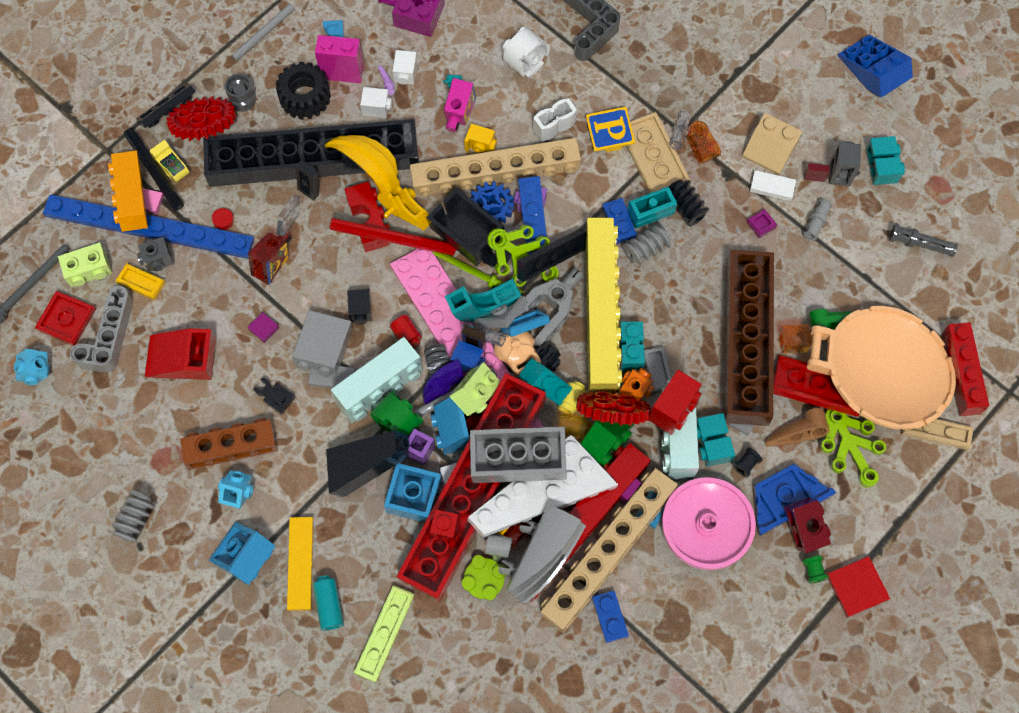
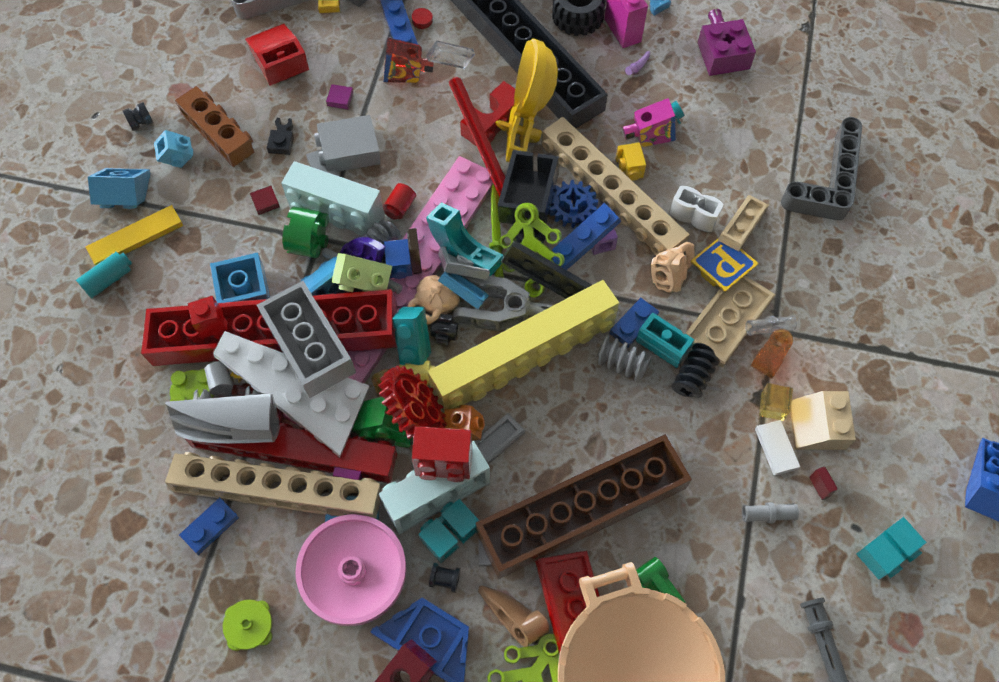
camera: 60 degrees right, 5 degrees down
(132, 517) = (112, 94): light grey piece -> none
(173, 506) = (138, 116): none -> black wheel
(307, 180) = (495, 45): black plate -> none
(331, 437) = (264, 200): none -> dark red tile
(359, 306) = (401, 153): black brick -> none
(364, 460) = (246, 227): black slope -> none
(375, 102) = (608, 64): white brick -> none
(384, 634) = (96, 336): yellowish green tile -> none
(405, 67) = (660, 68): white brick -> none
(420, 446) = (289, 266): medium lavender brick -> none
(492, 337) = (428, 258): clear pin -> none
(525, 52) = (747, 148): white brick -> none
(584, 95) = (743, 223): none -> tan tile
(594, 167) = (671, 267): none -> light nougat piece
(633, 352) = (493, 400): teal piece -> none
(706, 622) = (247, 625): none -> lime piece
(741, 164) = (775, 401): none -> clear yellow piece
(761, 223) = (726, 458): magenta tile -> none
(789, 345) = (612, 545): clear orange brick -> none
(845, 163) = (852, 503): dark grey brick -> none

